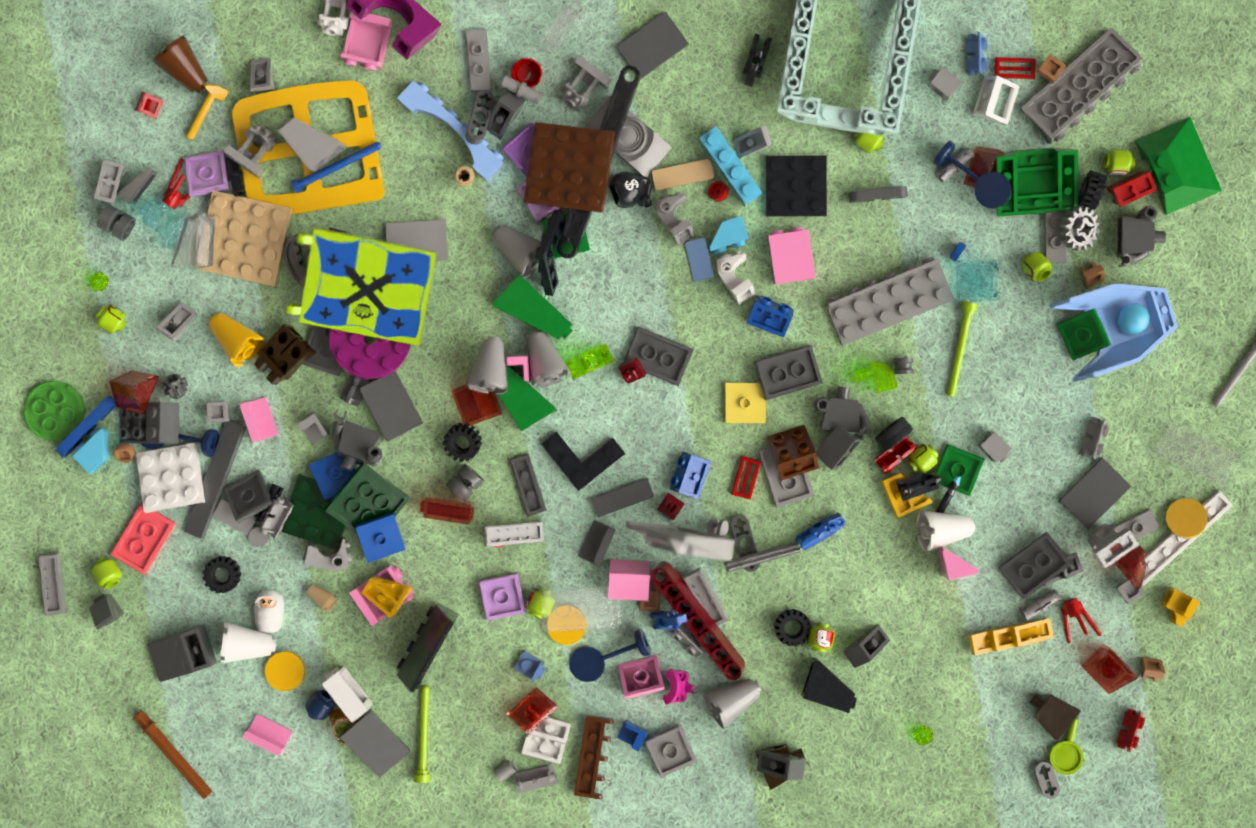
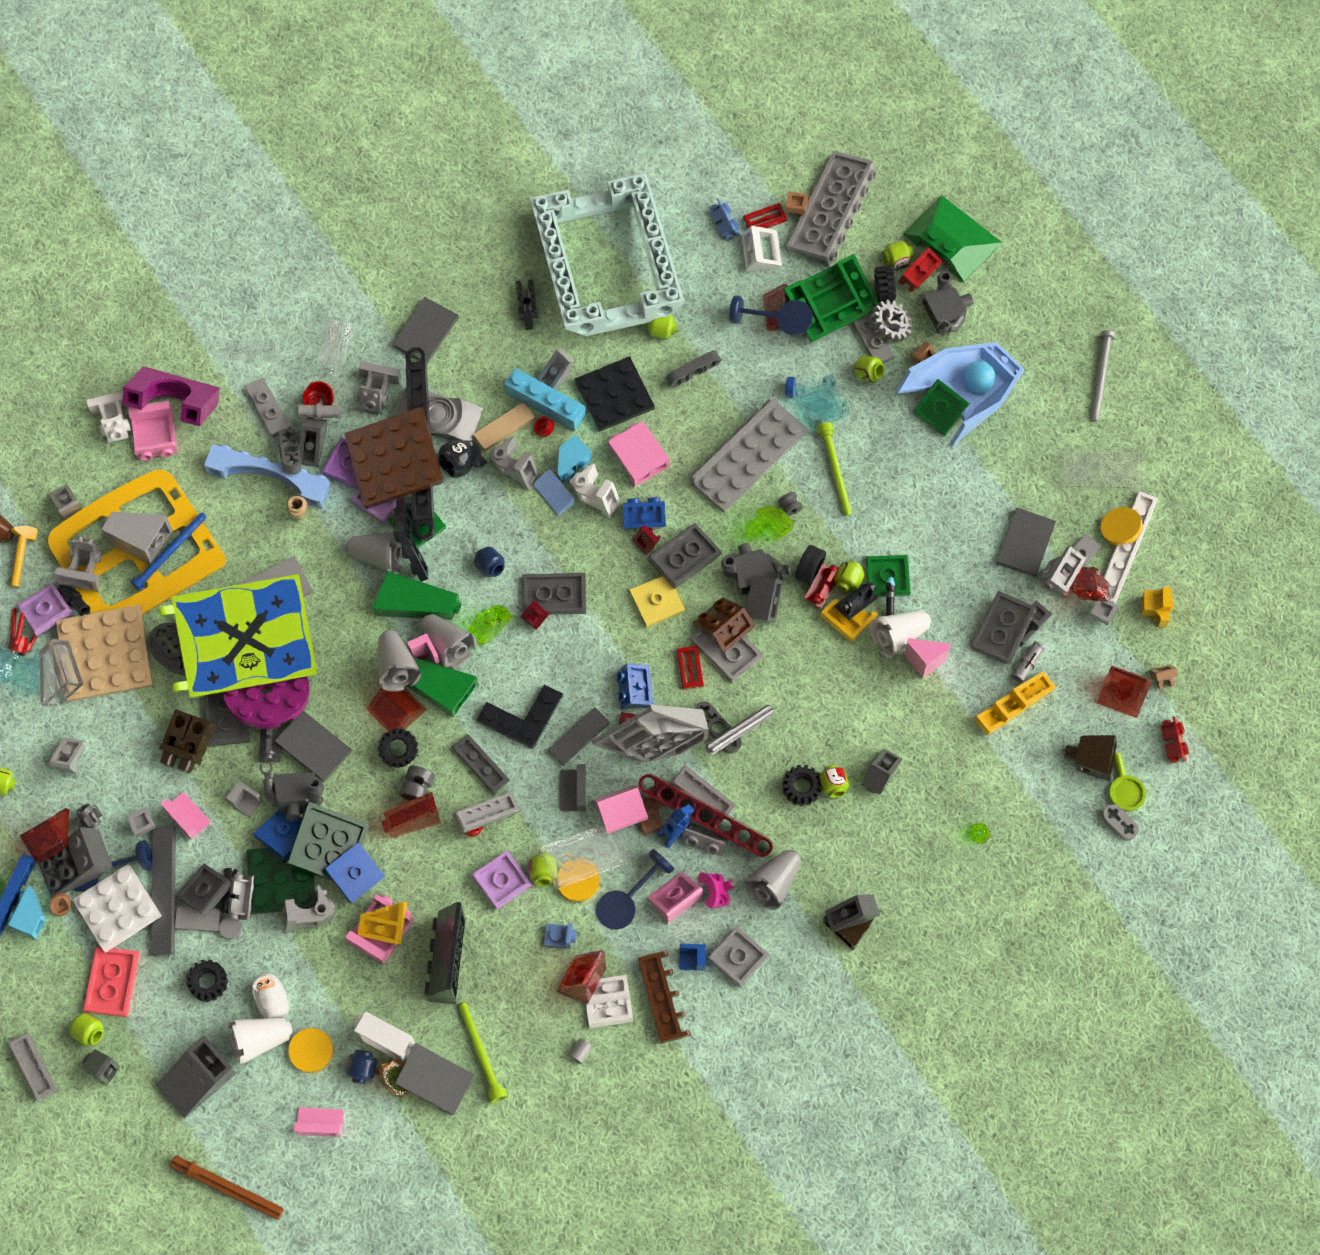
camera: 25 degrees left, 20 degrees down
(235, 338) = (132, 745): yellow cone -> none
(323, 598) = (320, 959): tan cone -> none
(535, 778) = (615, 1045): light grey hinge -> none
(613, 302) = (489, 562): none -> dark blue head
(760, 342) = (646, 539): none -> dark red tile
(820, 531) = (785, 683): blue hinge -> none
(827, 689) = (864, 827): black slope -> none
(943, 83) = (707, 253): light grey brick -> none
(949, 169) = (749, 319): light grey pin -> none
(995, 447) = (911, 539): light grey brick -> none
(1073, 609) = (1062, 652): red plant -> none
(1094, 445) = (999, 485): light grey hinge -> none

